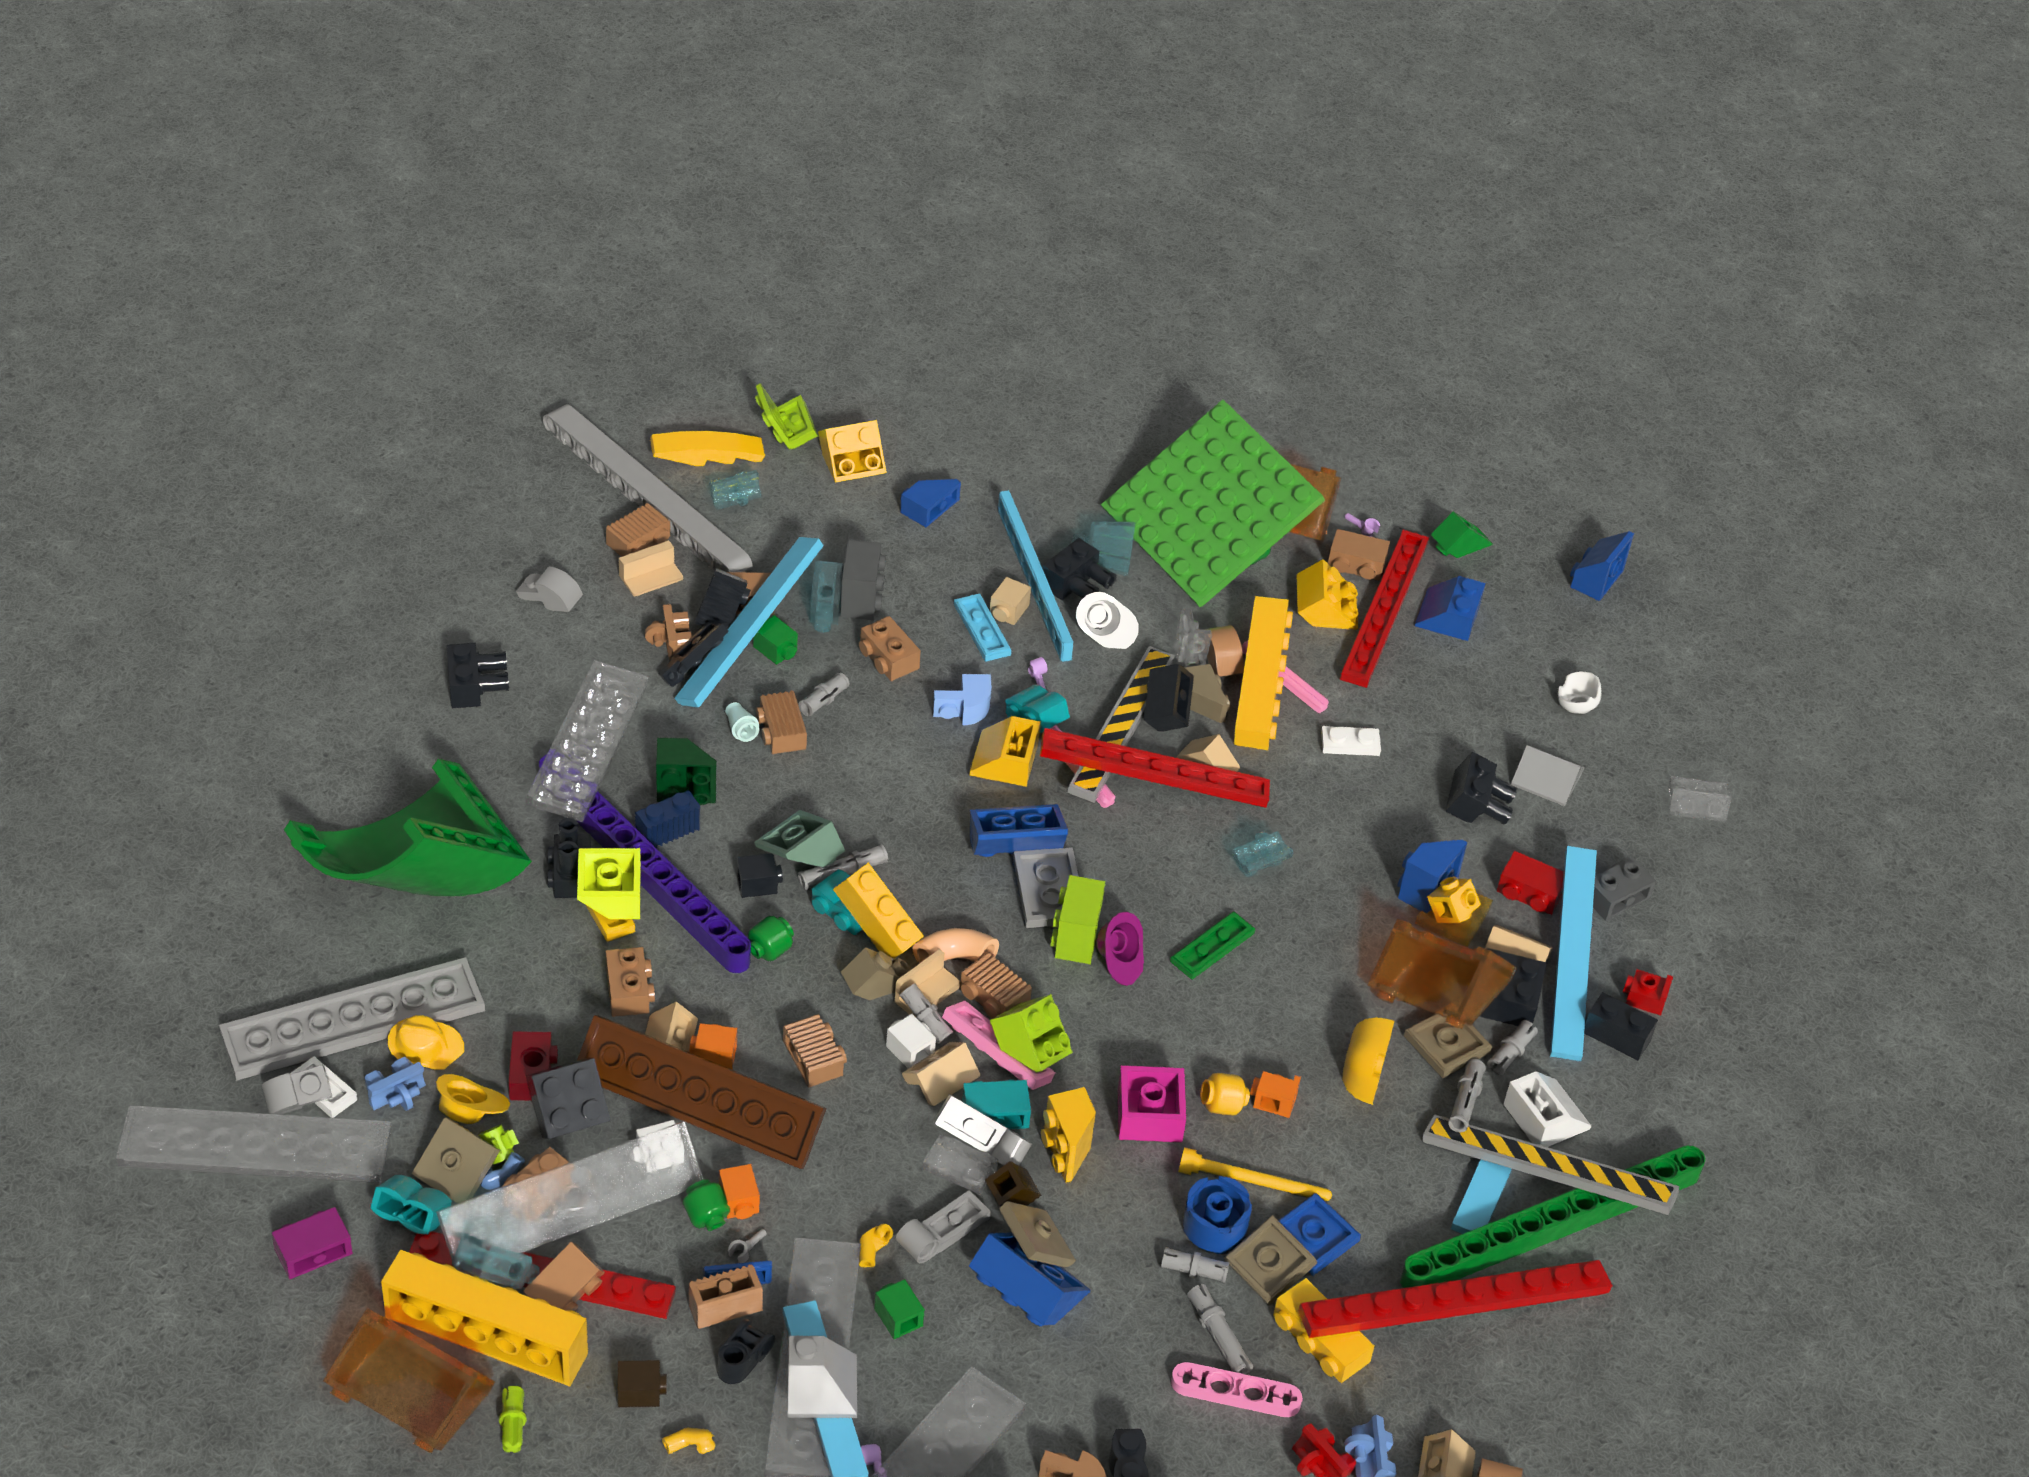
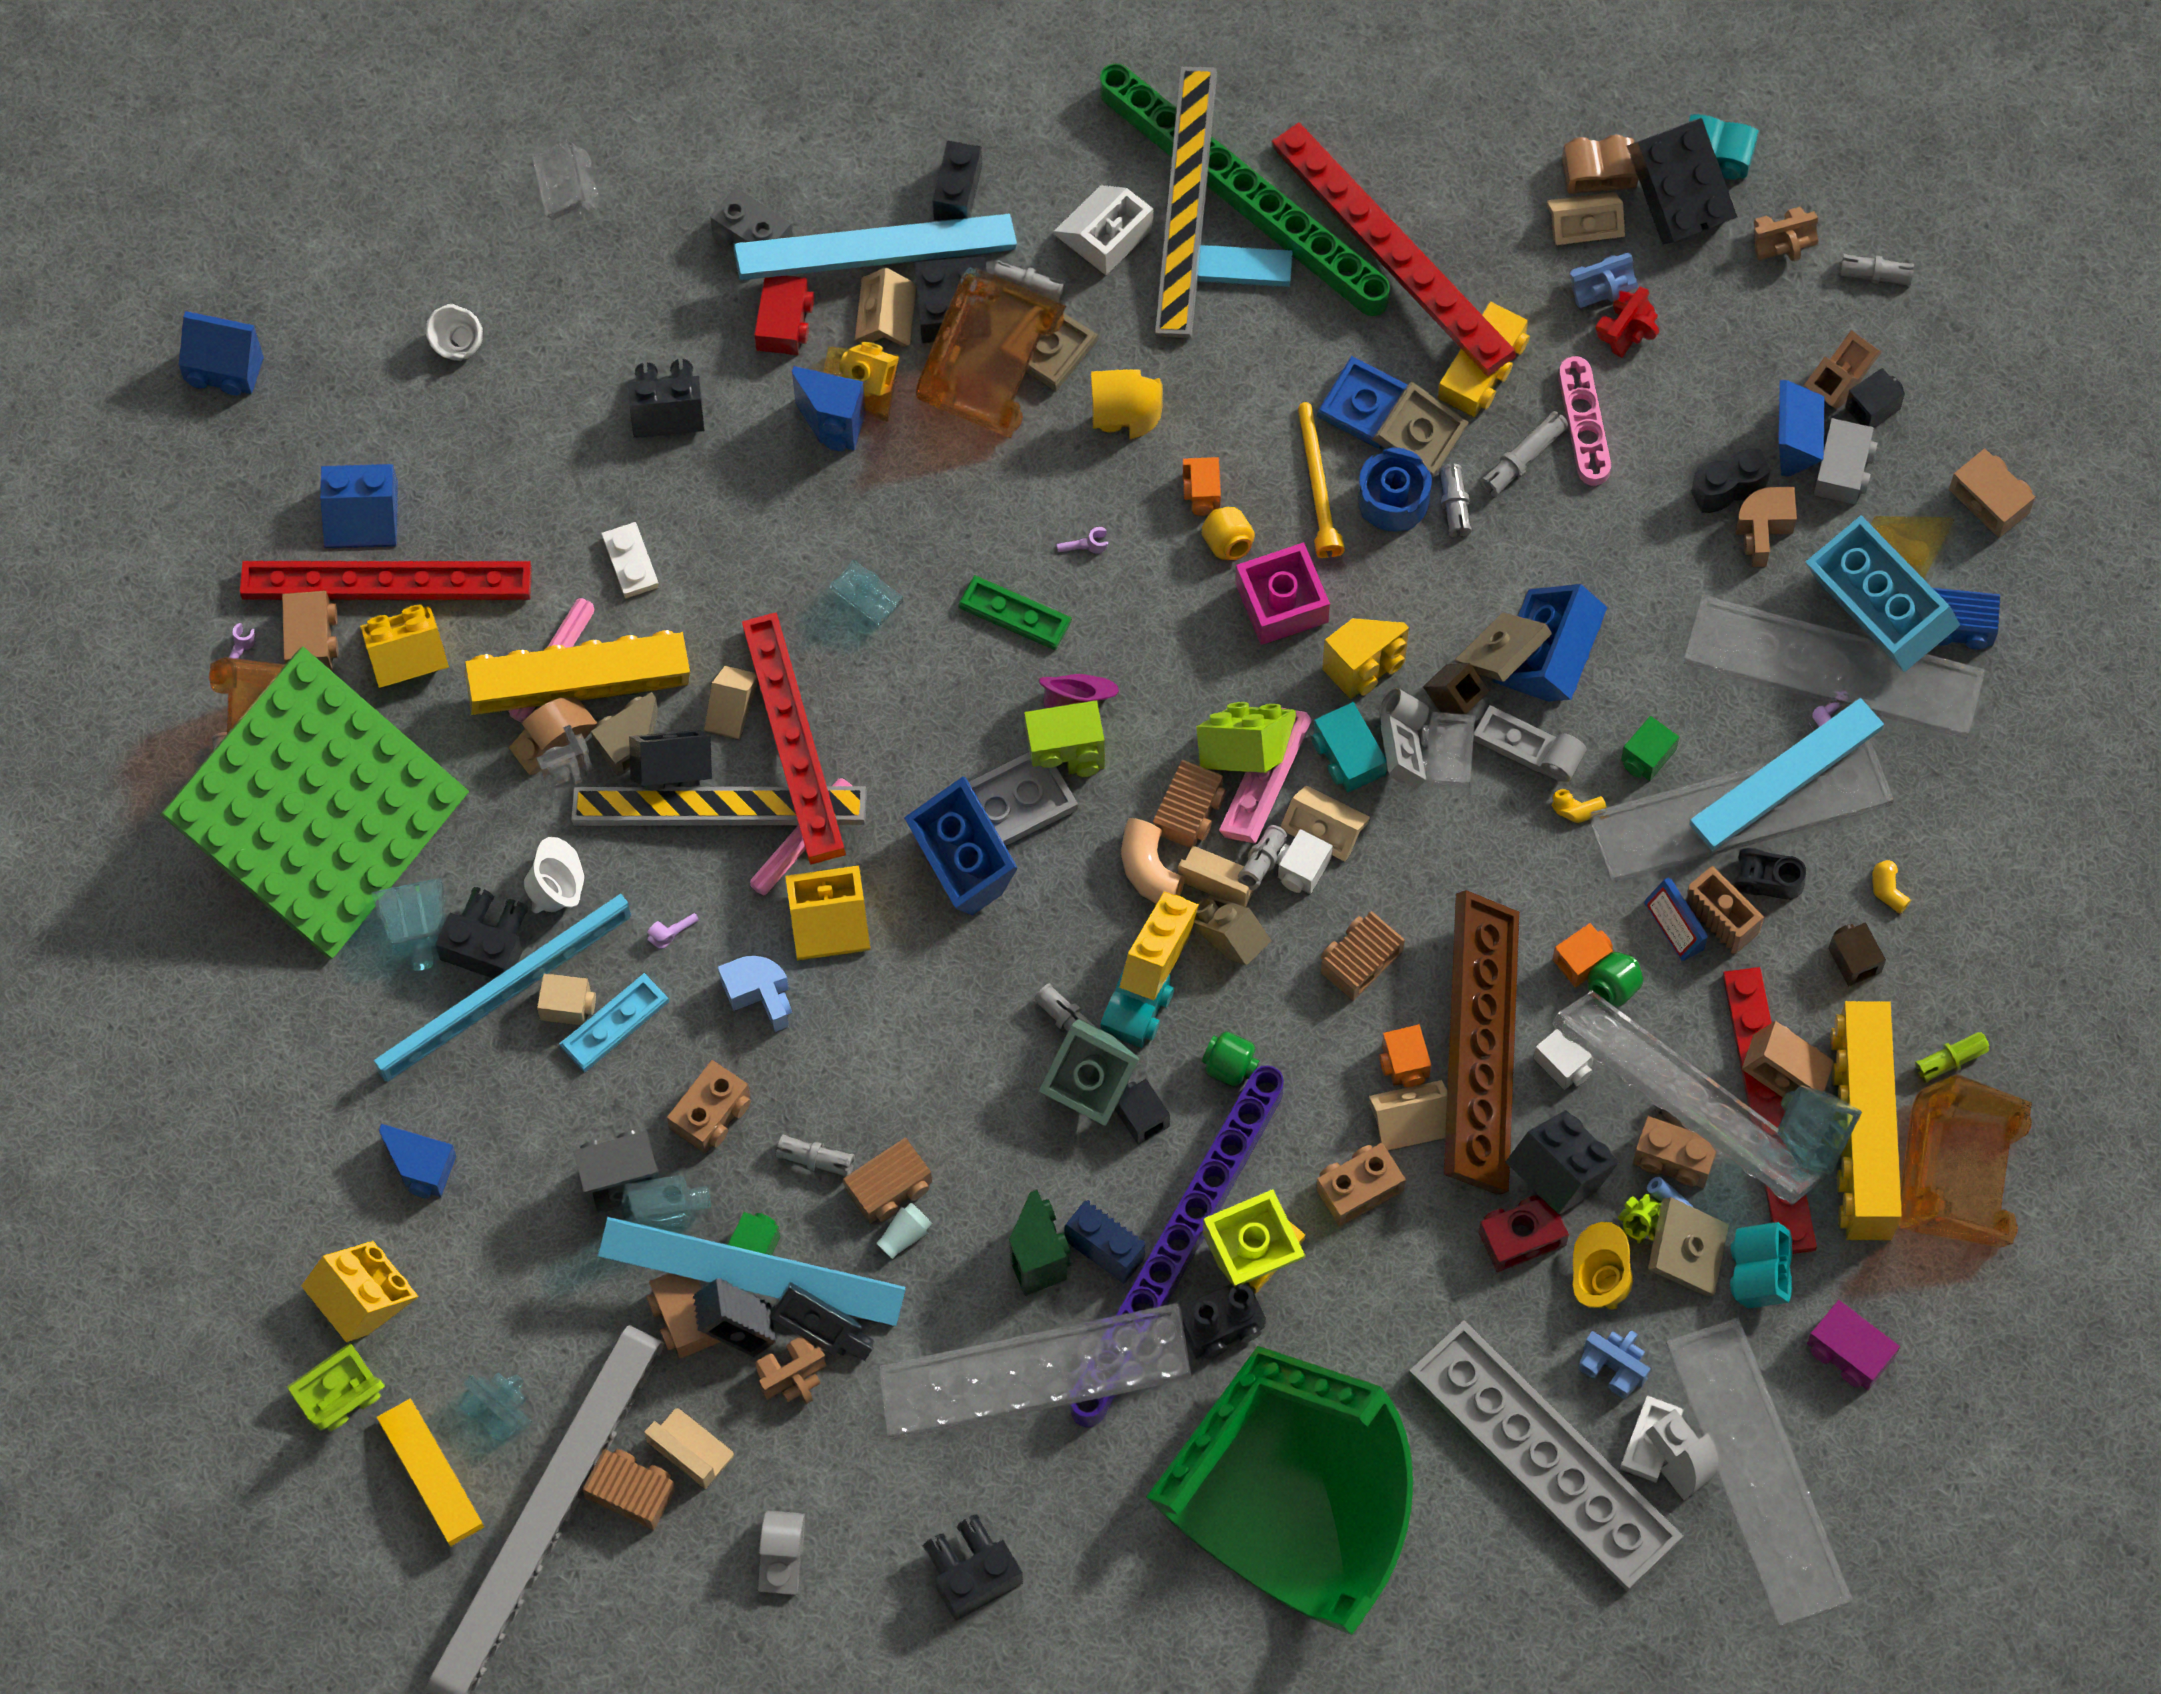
camera: 105 degrees left, 20 degrees up
(425, 1042) = (1542, 1361): yellow piece -> none
(745, 1246) = (1638, 928): light grey hand -> none
(821, 1379) = (1788, 772): light grey slope -> none
(1038, 705) = (745, 901): teal brick -> none
(1257, 1007) = (1086, 543): none -> lavender hand
(1459, 537) = (226, 526): green slope -> none
(1469, 1088) = (1107, 306): light grey pin -> none
(1547, 775) = (593, 340): light grey slope -> none
(1647, 991) = (889, 169): red brick -> none

